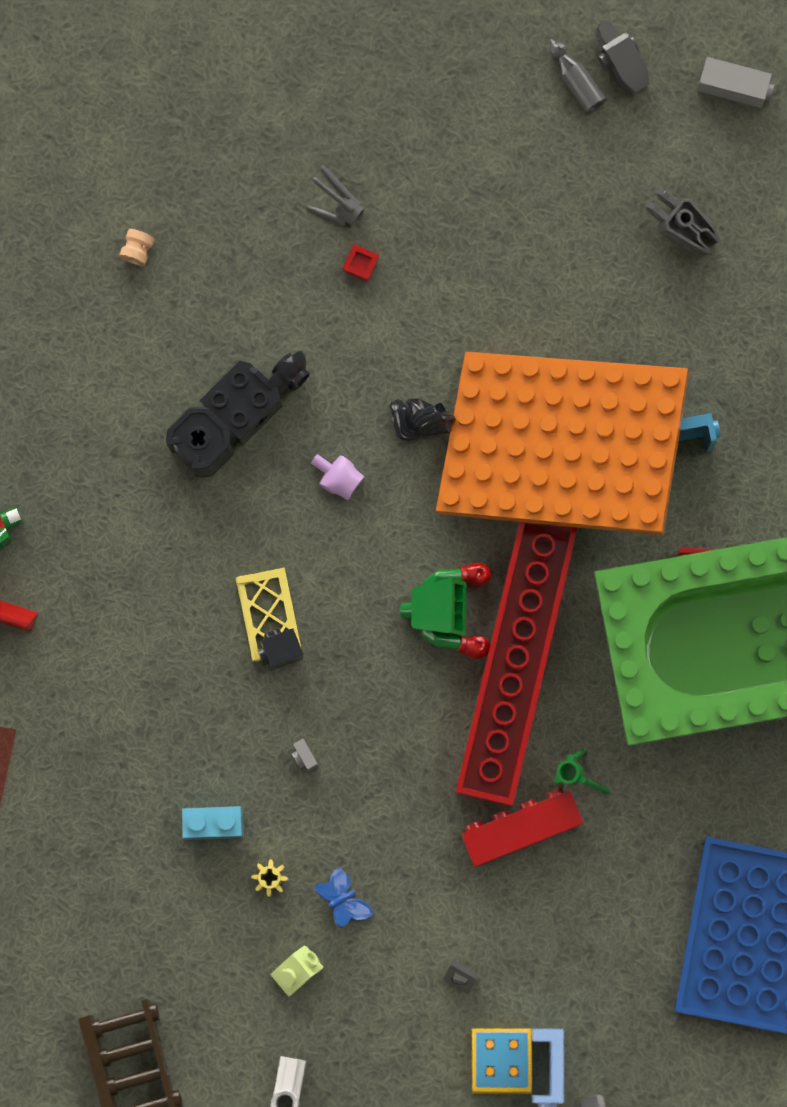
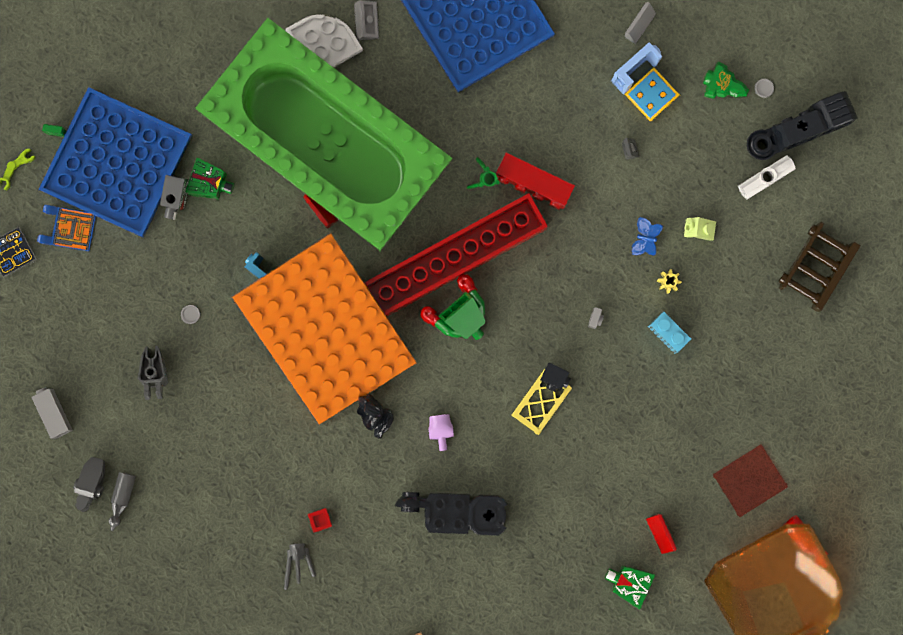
camera: 140 degrees left, 5 degrees up
(714, 320) = (190, 314): none -> light grey piece

